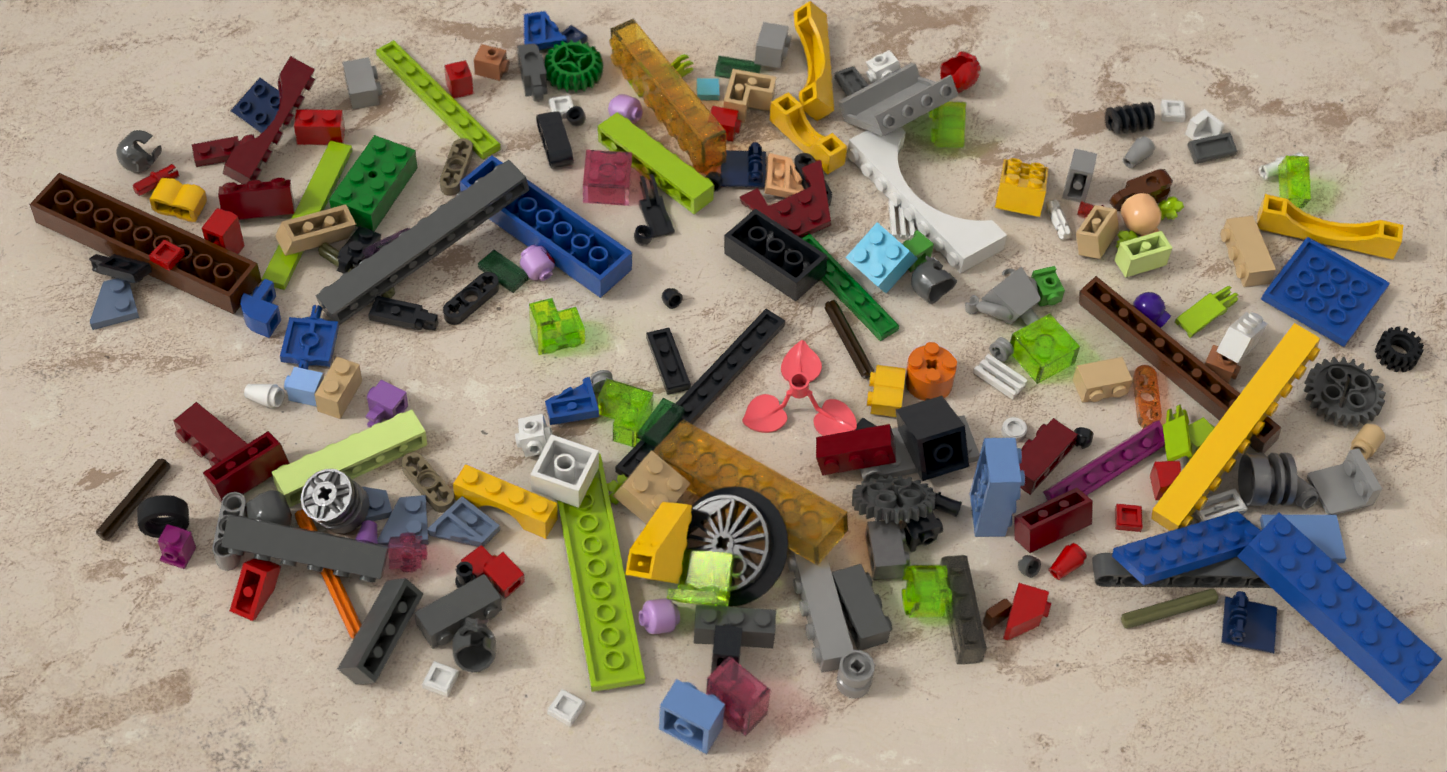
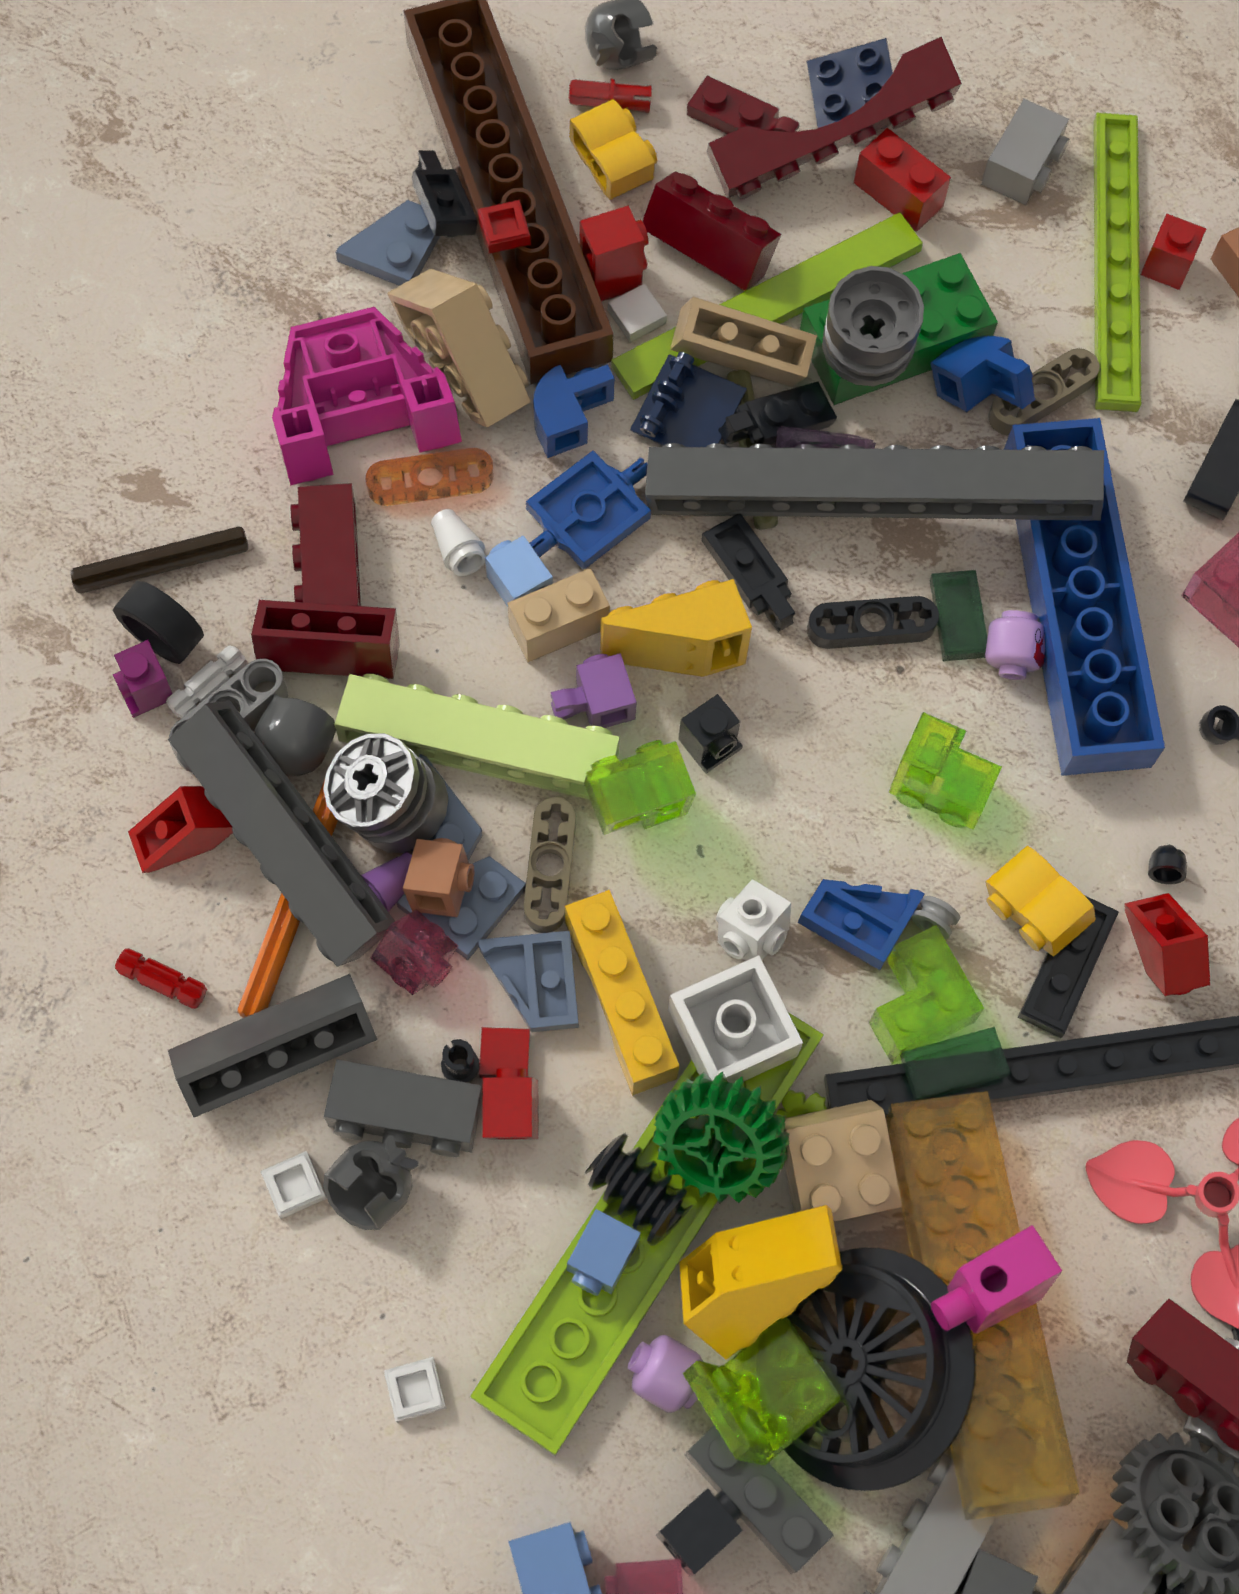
camera: 45 degrees right, 15 degrees up
(153, 366) = (354, 381): none -> dark pink wedge
(190, 314) = (456, 326): none -> tan brick
(205, 528) = (206, 681): none -> white axle
(223, 390) = (444, 488): none -> clear orange beam
(255, 252) = (637, 312): none -> white tile
(303, 651) = (161, 978): none -> red axle
(312, 272) = (687, 404): none -> dark blue hinge
(370, 180) = (881, 307): none -> flat silver wheel
(389, 515) = (438, 877): none -> nougat brick
(400, 352) = (682, 632): none -> yellow slope
(424, 172) = (982, 368): none -> blue brick
(442, 417) = (640, 788): none -> clear neon green brick
(447, 383) = (710, 733): none -> black brick
(584, 557) = (637, 1189): none -> black piece
(593, 590) = (602, 1253): none -> medium blue brick
(619, 494) = (714, 1147): none -> green gear
(636, 343) = (1039, 901): none -> yellow brick
(699, 323) = (1169, 944): none -> red slope
(750, 472) = (998, 1283): none -> dark pink torso

